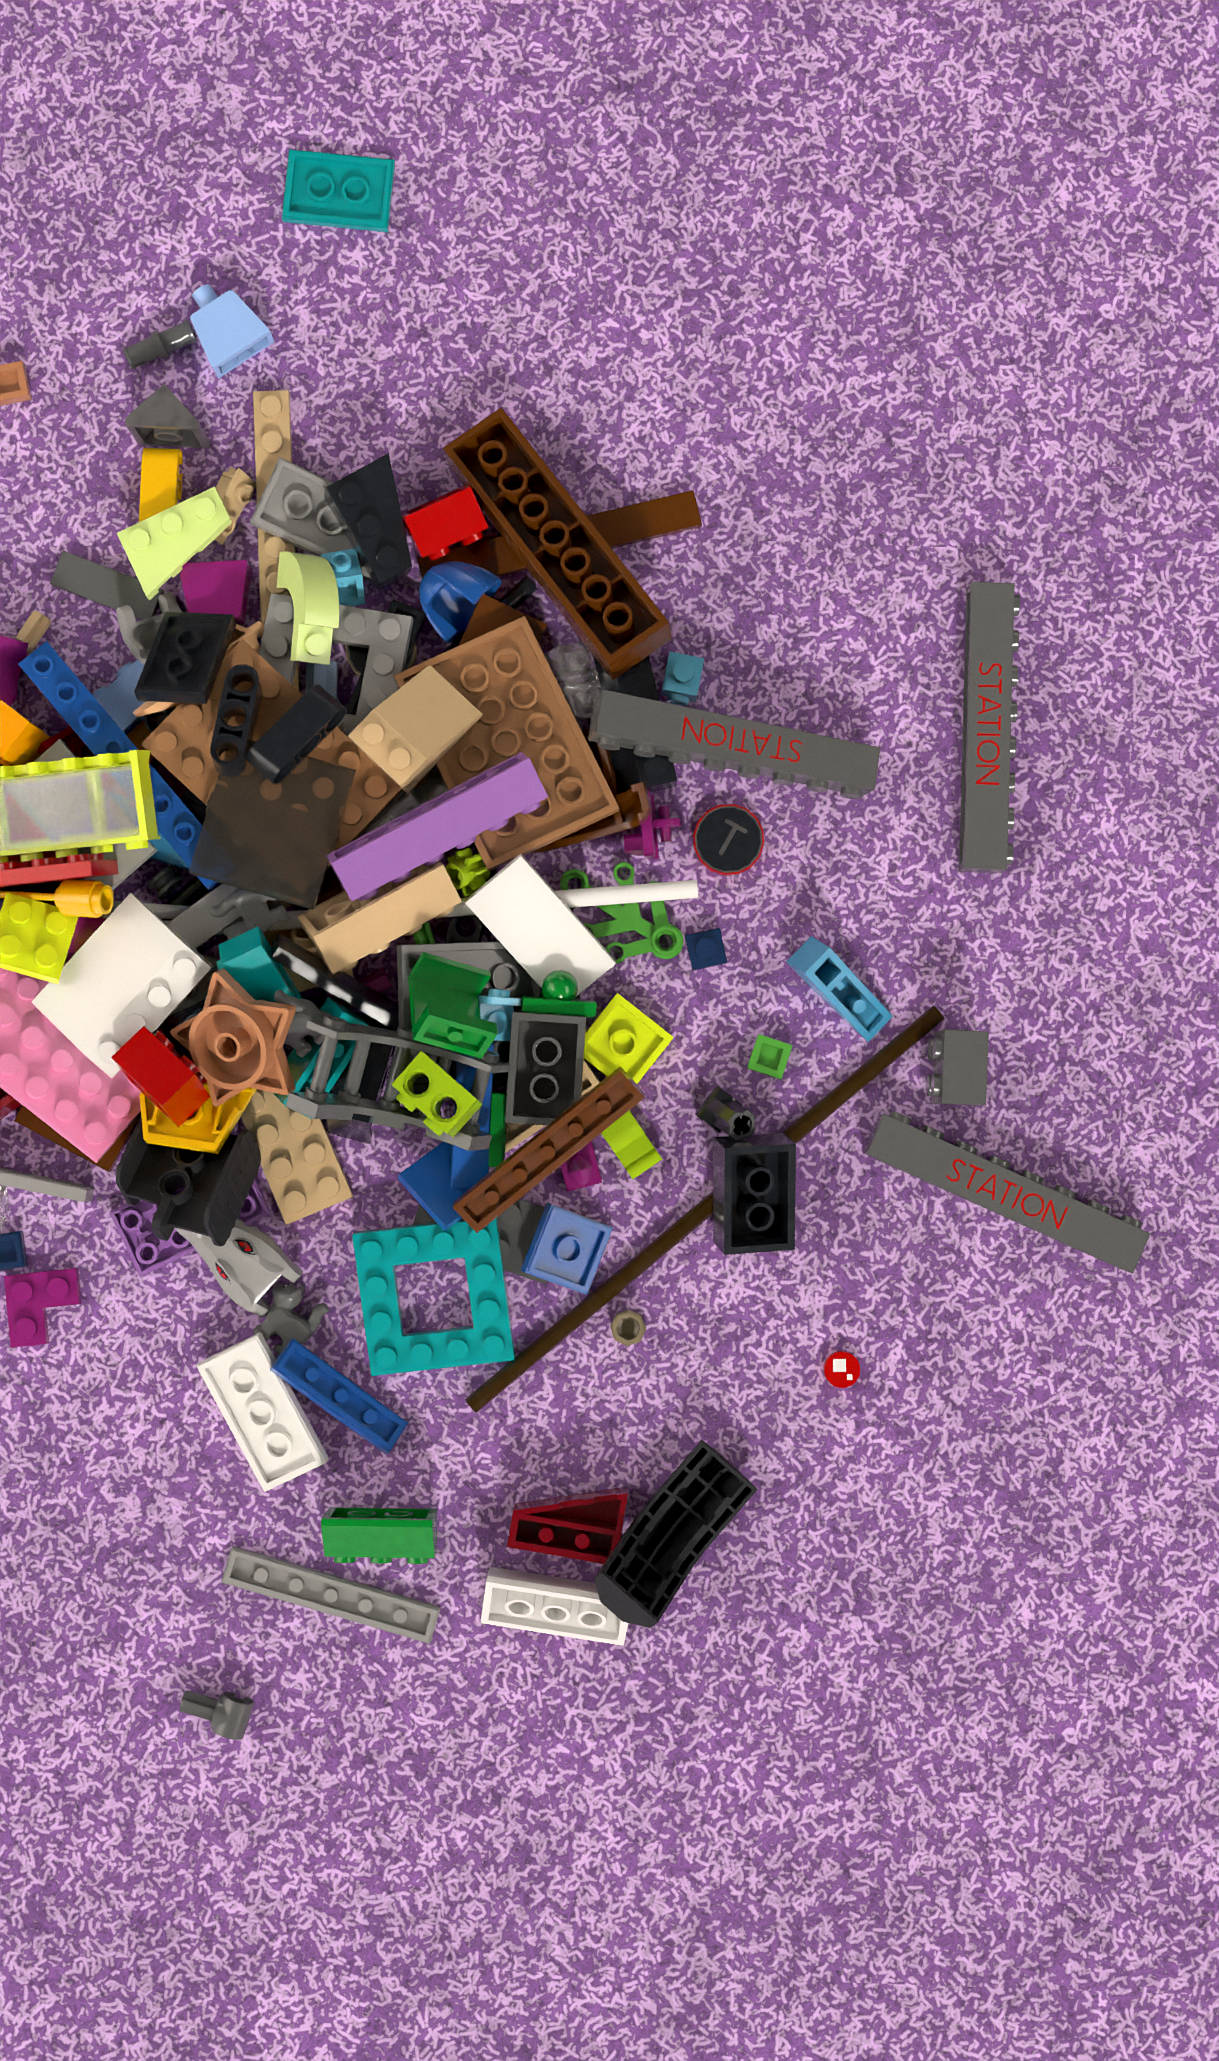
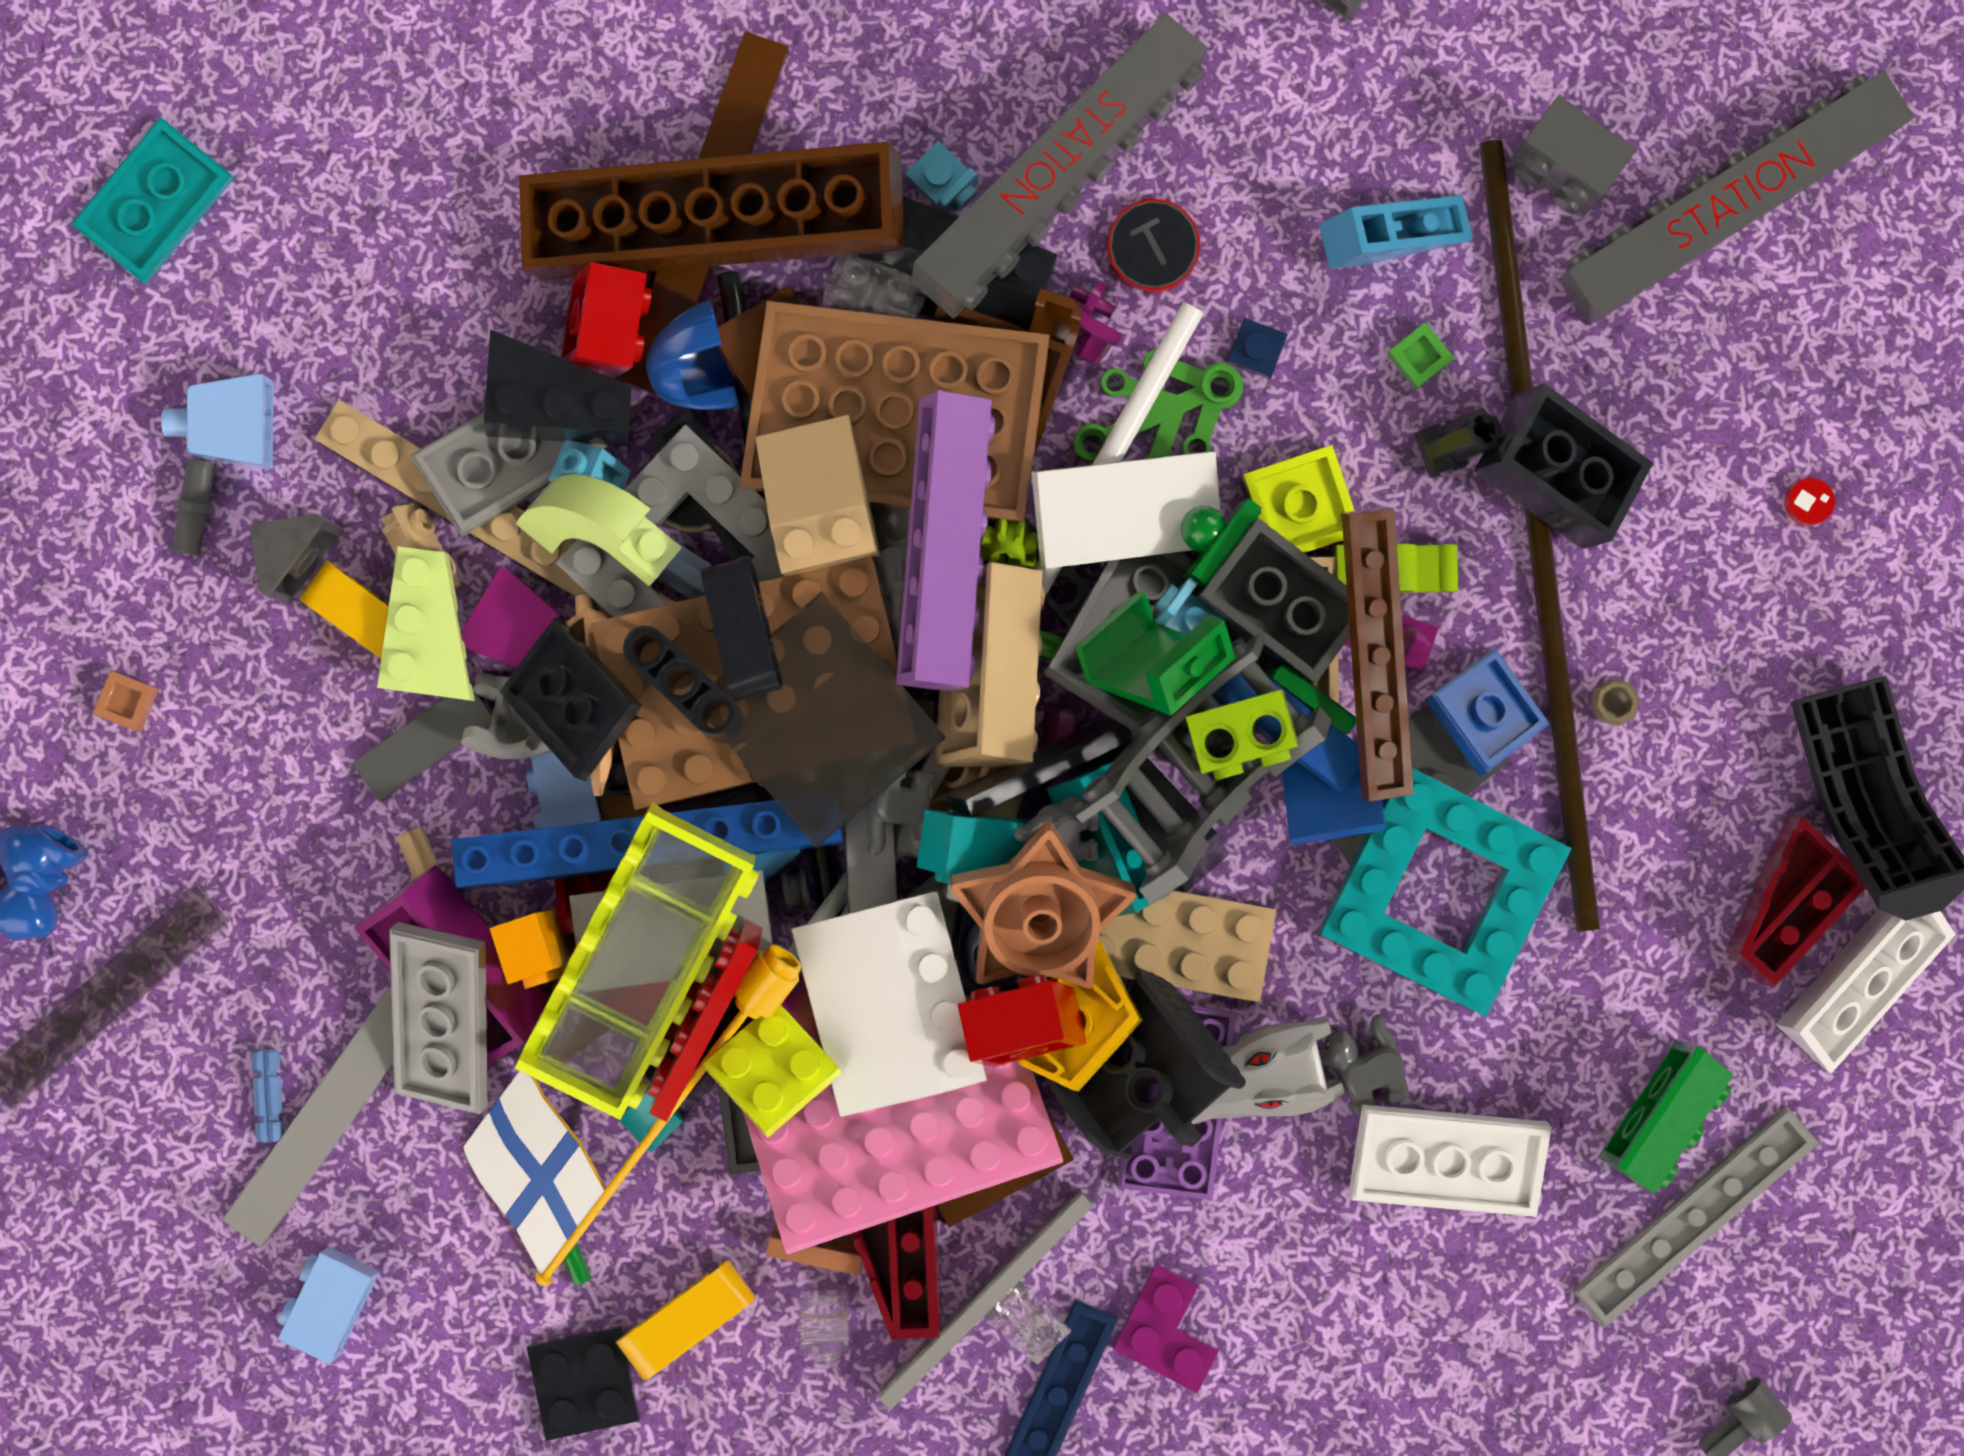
camera: 55 degrees left, 0 degrees up
(339, 1396) = (1487, 1065): blue tile -> none

